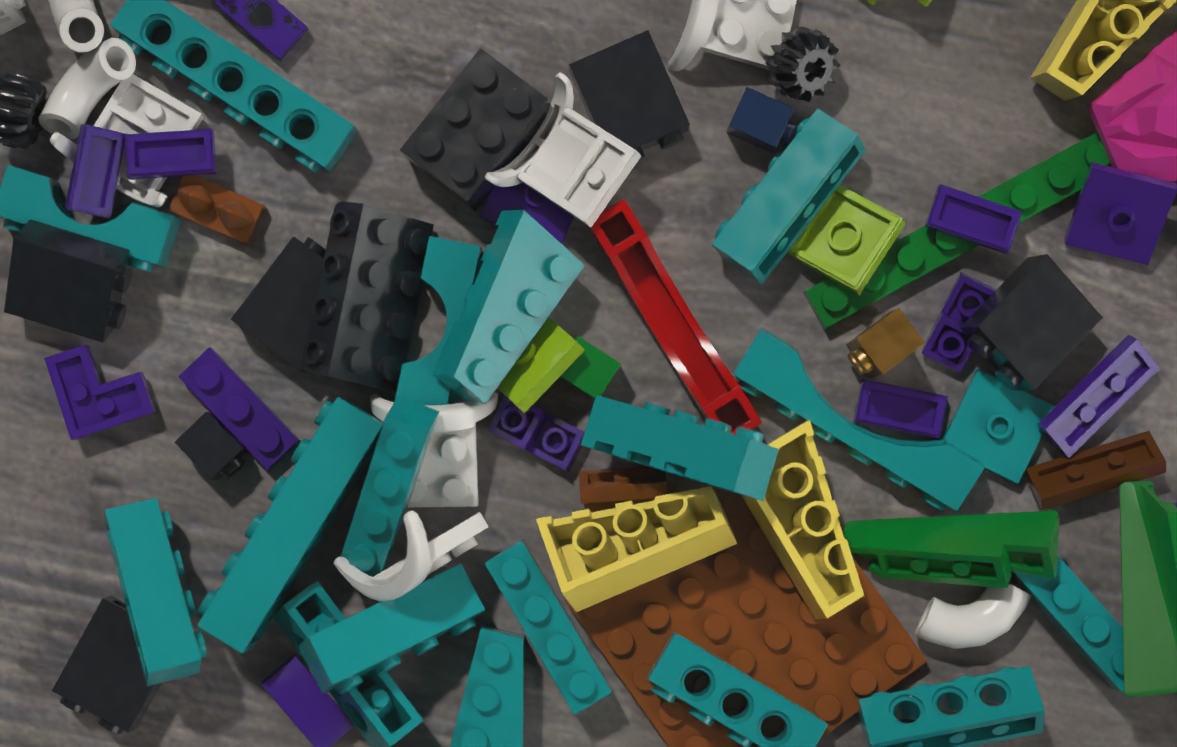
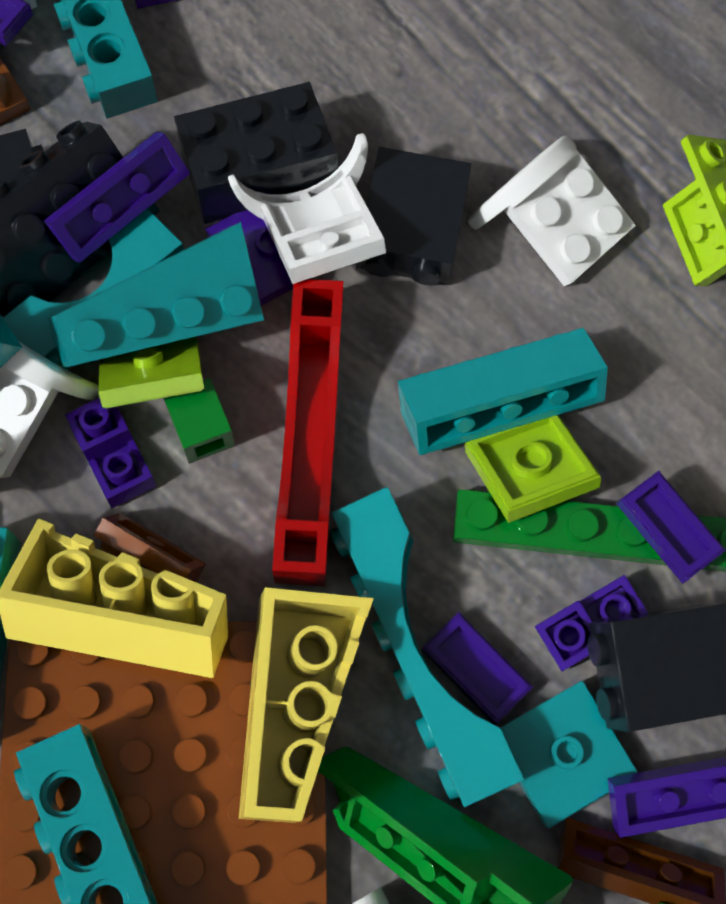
camera: 30 degrees right, 15 degrees down
(412, 246) = (117, 197): none -> dark purple plate
(682, 445) = (227, 535): teal wedge -> none
(762, 121) = (521, 309): dark blue brick -> none
(802, 63) = (611, 287): black gear -> none
(884, 344) = (502, 583): pearl gold brick -> none

